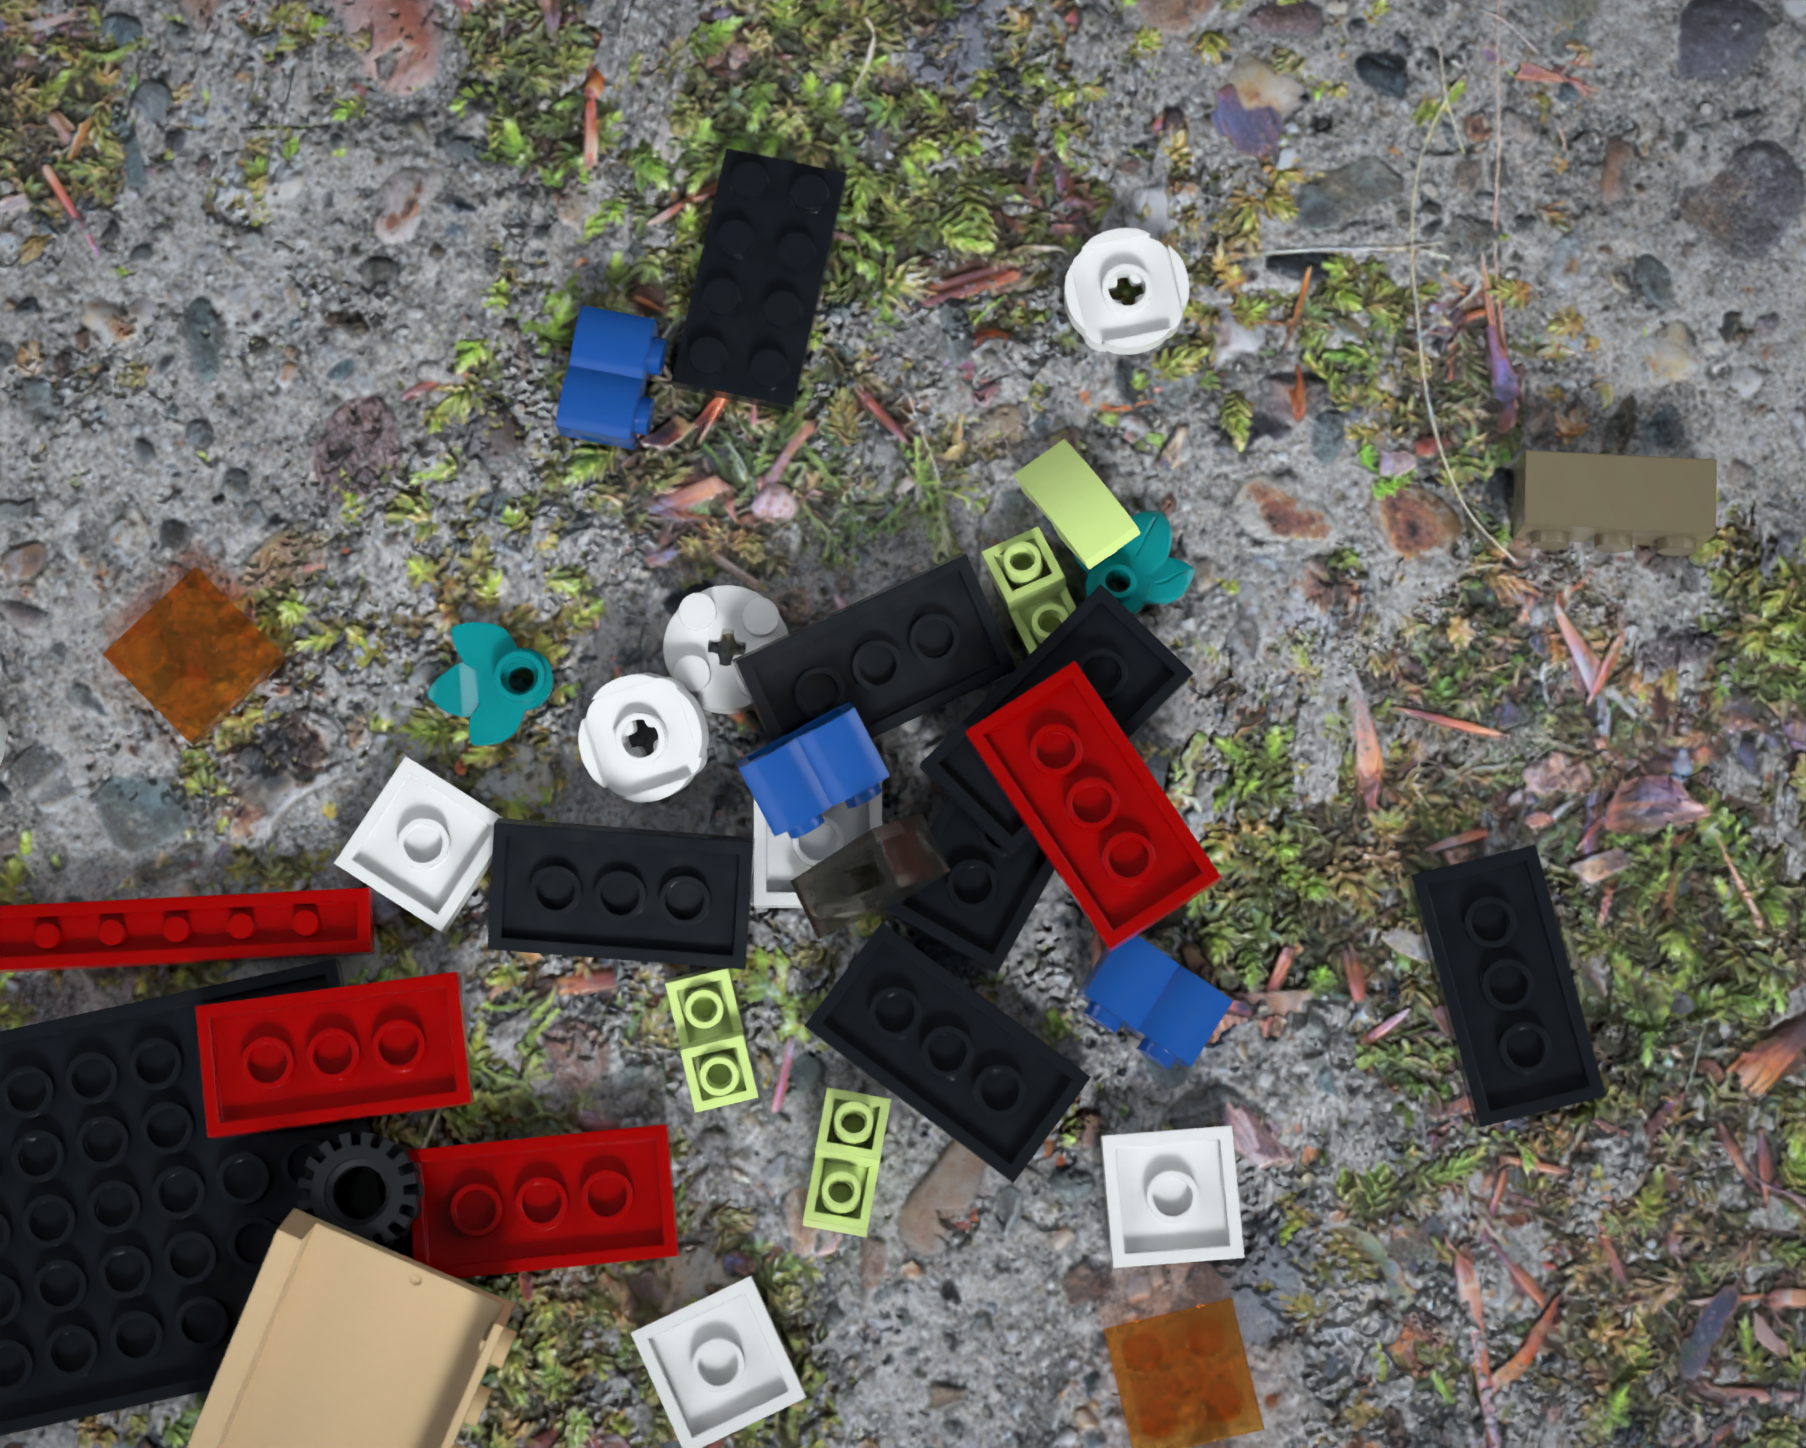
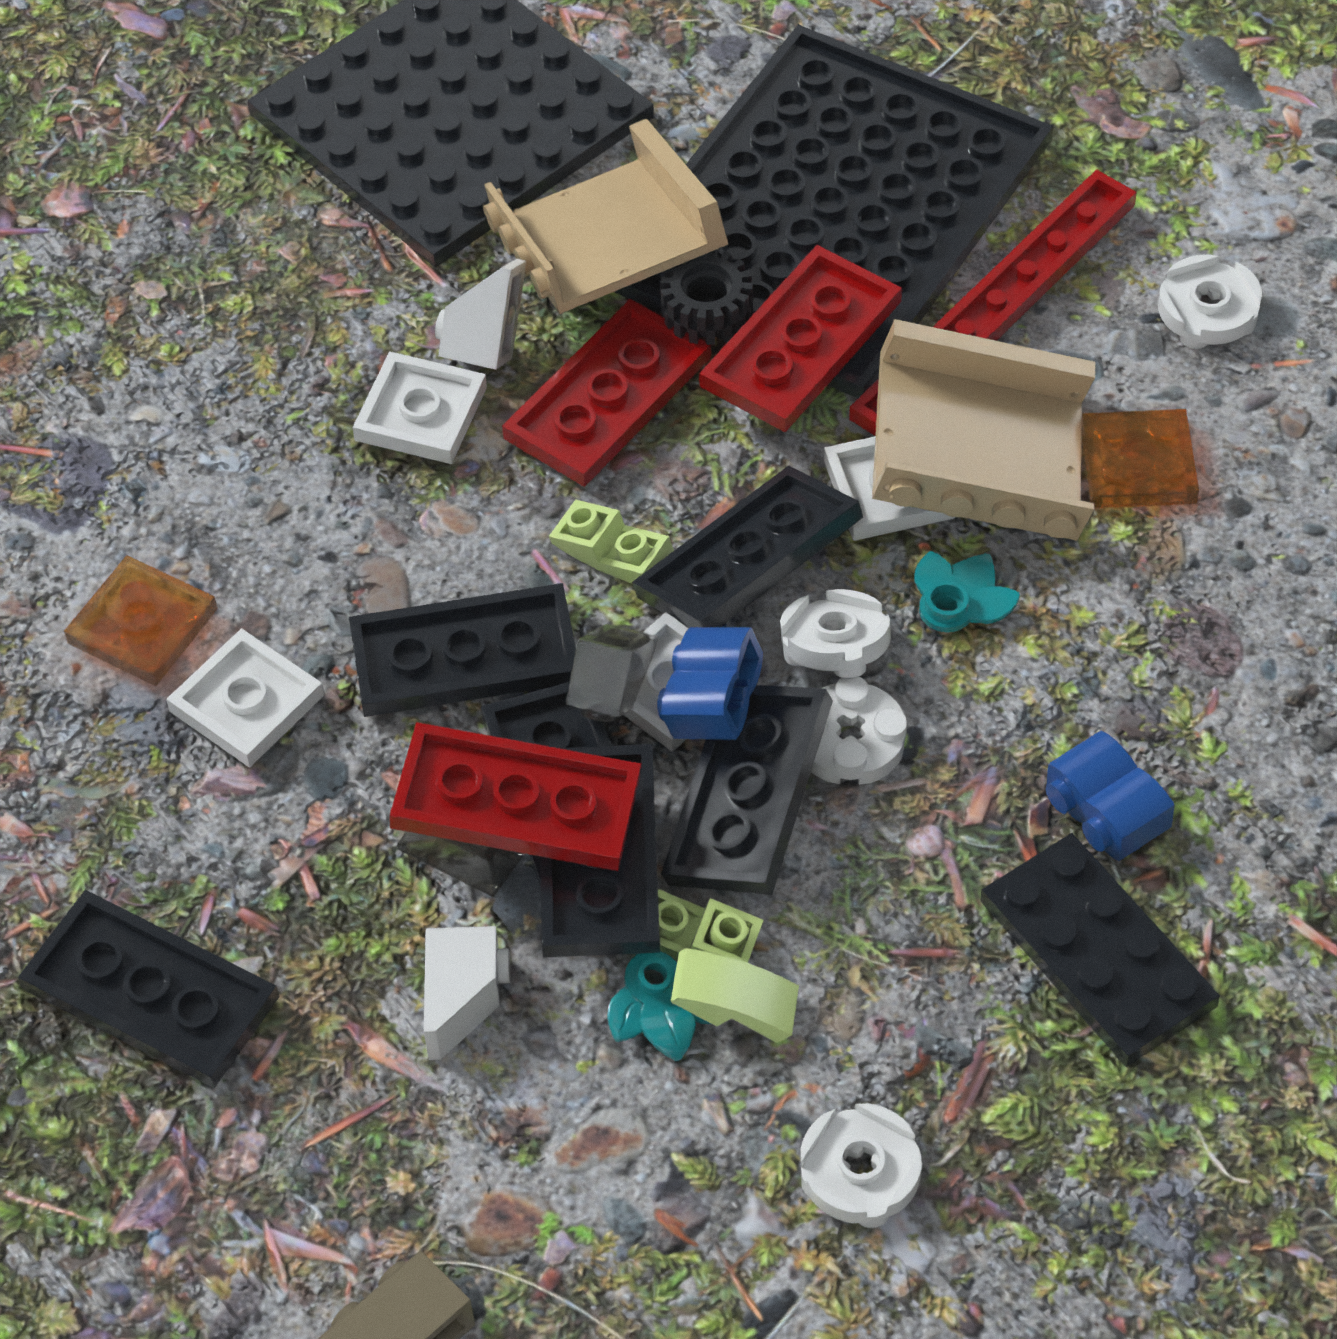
camera: 135 degrees right, 25 degrees down
(310, 797) = (981, 430): none -> tan panel
(576, 1390) = (484, 320): none -> white slope
(846, 1162) = (458, 555): yellowish green slope -> none
(1153, 1000) = (358, 778): blue brick -> none
(1266, 732) = (460, 983): none -> white slope

